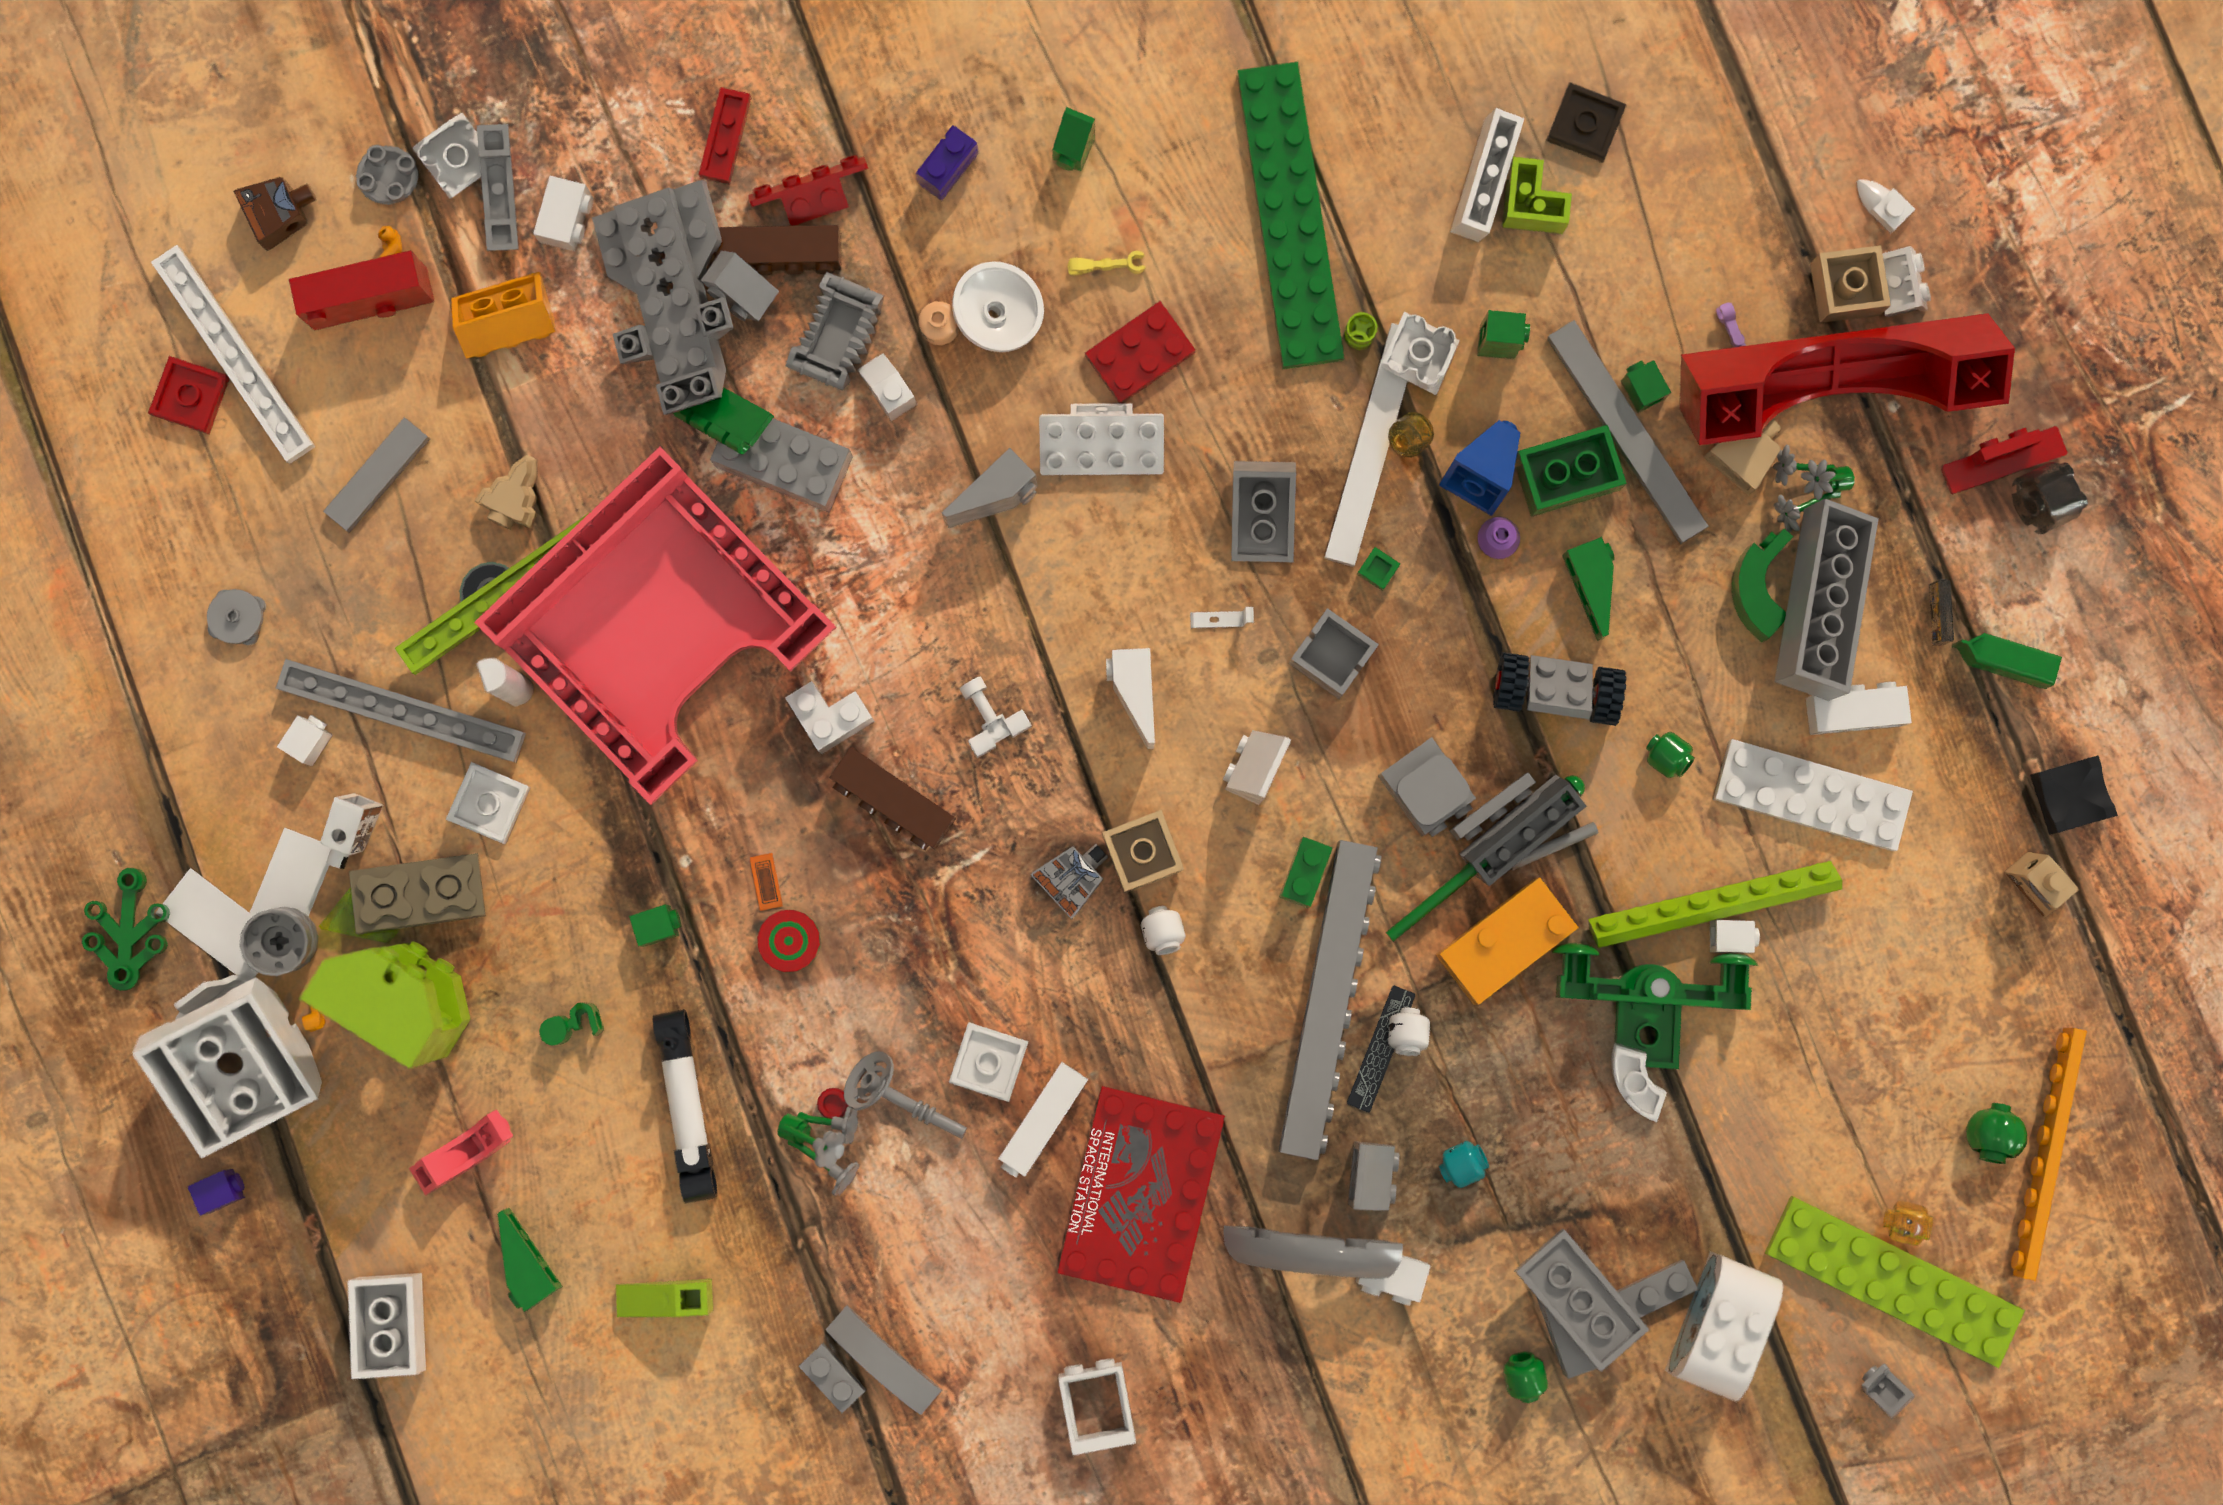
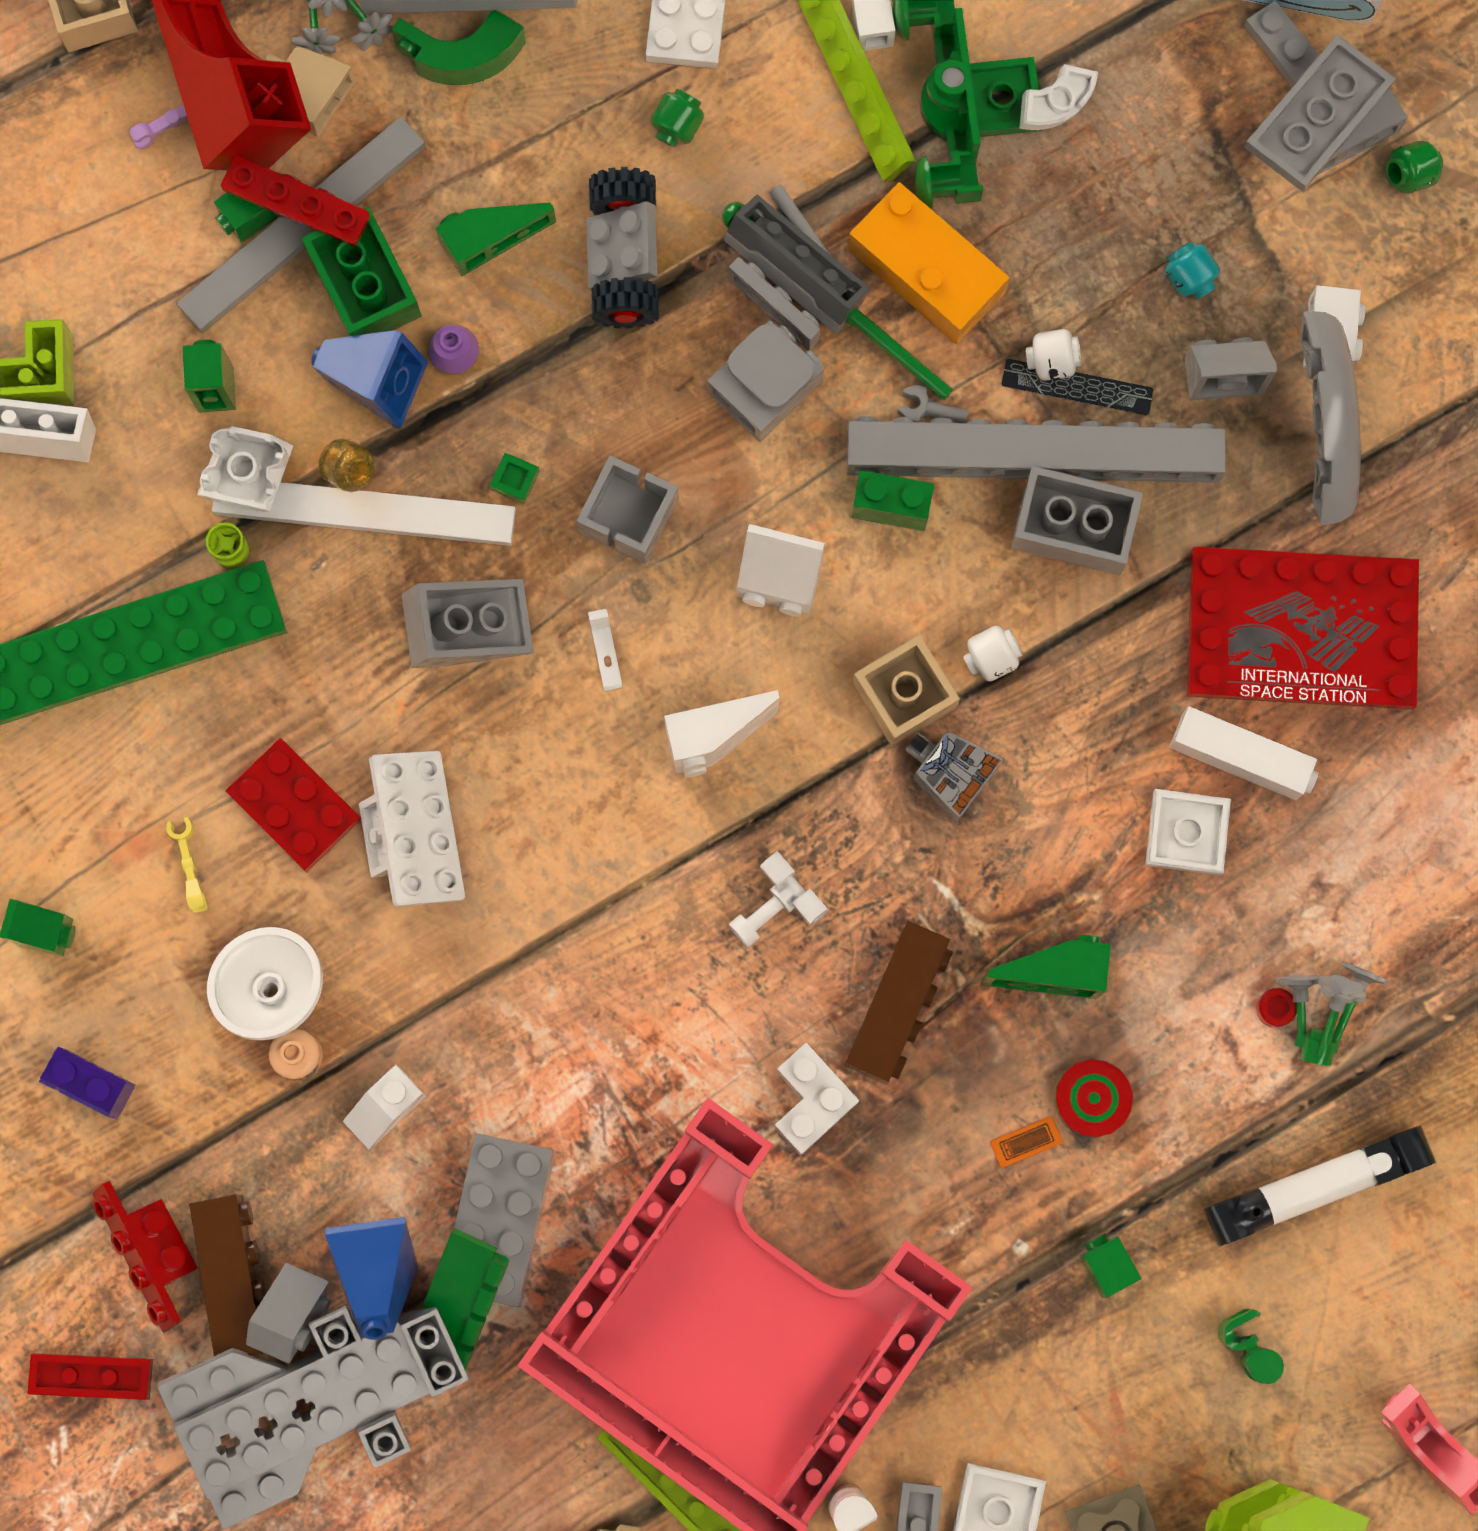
camera: 100 degrees left, 5 degrees down
(756, 354) = (375, 1271): none -> blue slope
(838, 332) = (324, 1180): light grey piece -> none
(879, 1088) = (1248, 952): light grey dish -> none
(892, 930) = (1066, 969): none -> green slope
(994, 491) = (488, 934): light grey slope -> none
(1261, 1020) = (1076, 520): none -> light grey brick
(1381, 921) = (928, 407): none -> light grey bar
(1642, 421) = (295, 200): none -> red bracket

